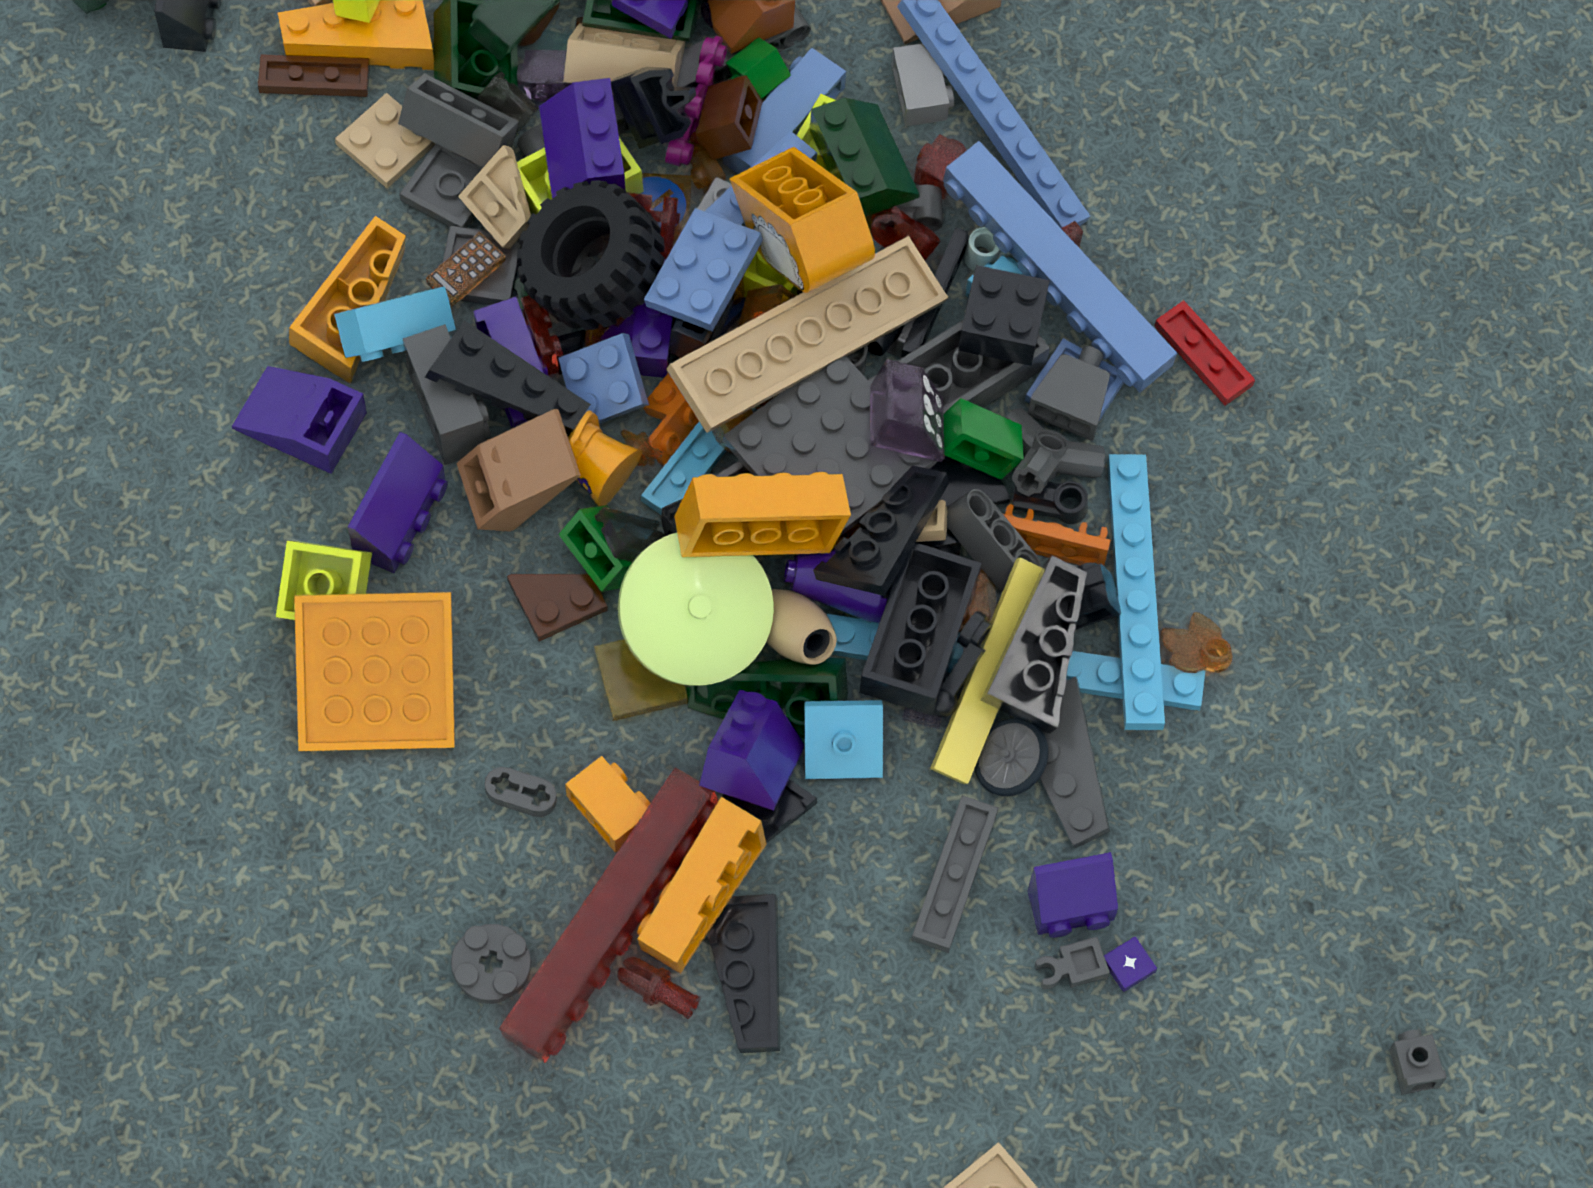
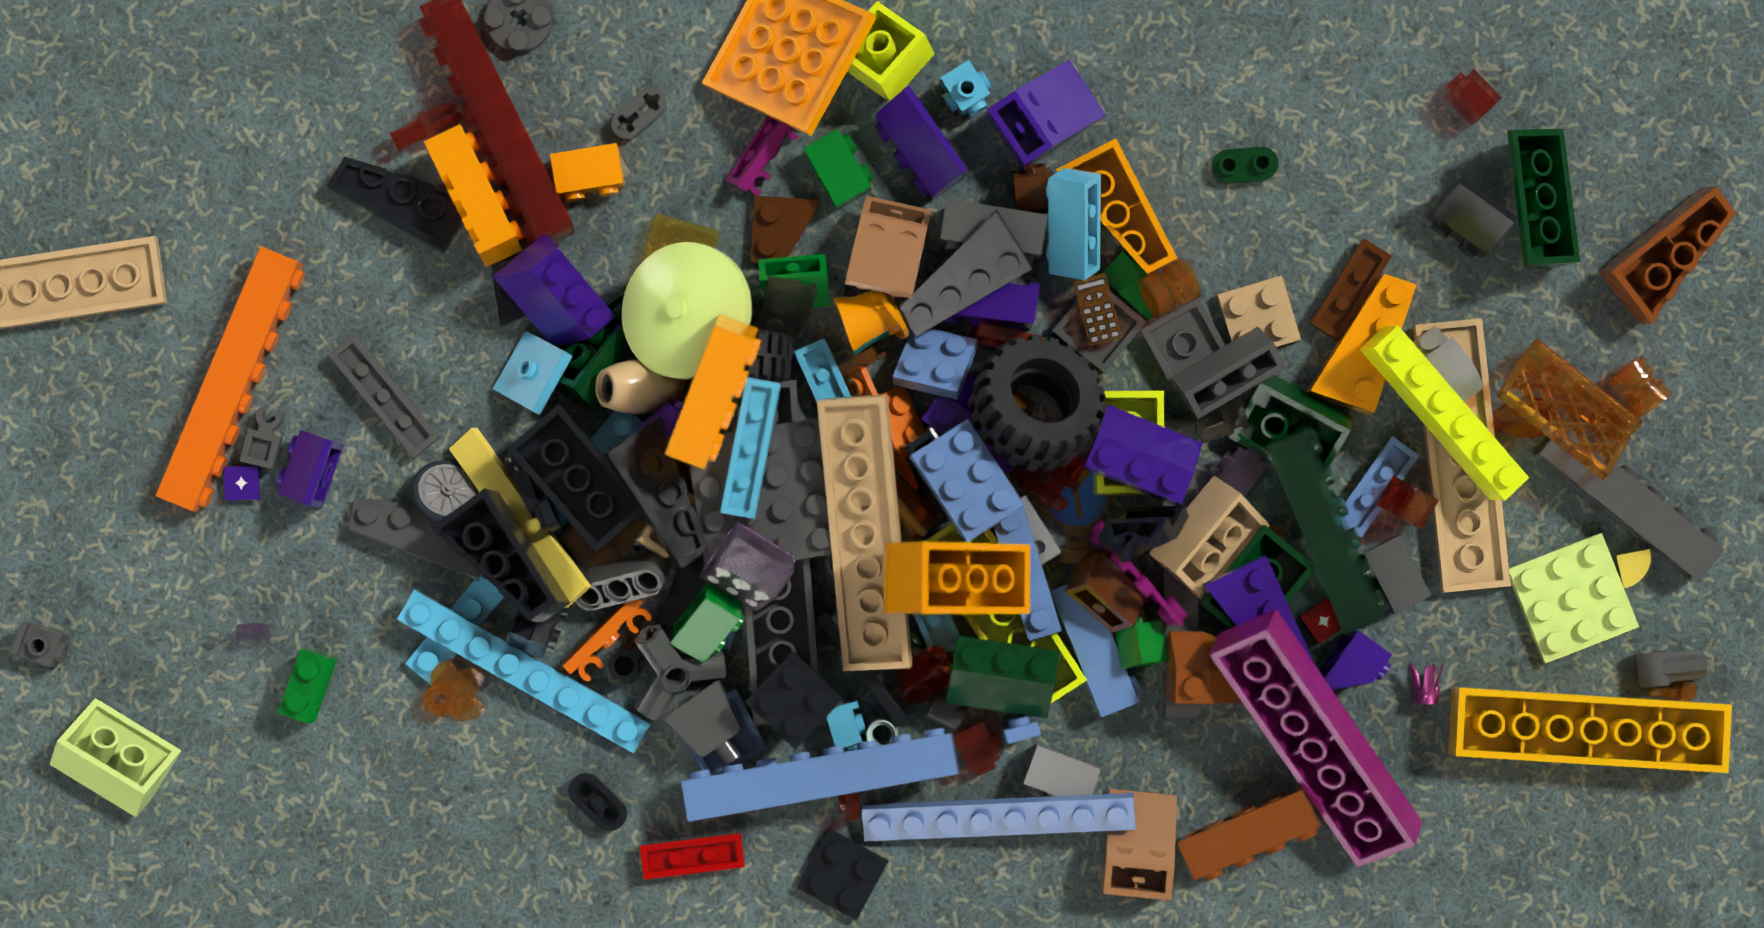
camera: 120 degrees right, 20 degrees up
(66, 63) = (1471, 96): none -> clear red brick
(244, 222) = (1244, 165): none -> dark green plate
(317, 497) = (965, 77): none -> medium azure brick
(382, 384) = (1030, 188): none -> reddish brown brick
(409, 215) = (1174, 286): none -> clear orange wheel
(421, 256) = (1123, 279): none -> green tile
(467, 570) = (838, 168): none -> green brick
(496, 654) = (758, 153): none -> magenta plate
(499, 198) = (1139, 367): tan wing -> none
(836, 455) = (750, 448): none -> medium azure plate
(905, 127) = (1020, 728): none -> medium blue plate
(1034, 1029) = (230, 380): none -> orange brick
(1132, 220) = (842, 874): none -> black plate
(1211, 463) = (597, 802): none -> black plate
(1267, 864) = (252, 631): none -> clear purple tile
(1282, 780) = (307, 685): none -> green brick
(1475, 924) = (114, 757): none -> yellowish green slope

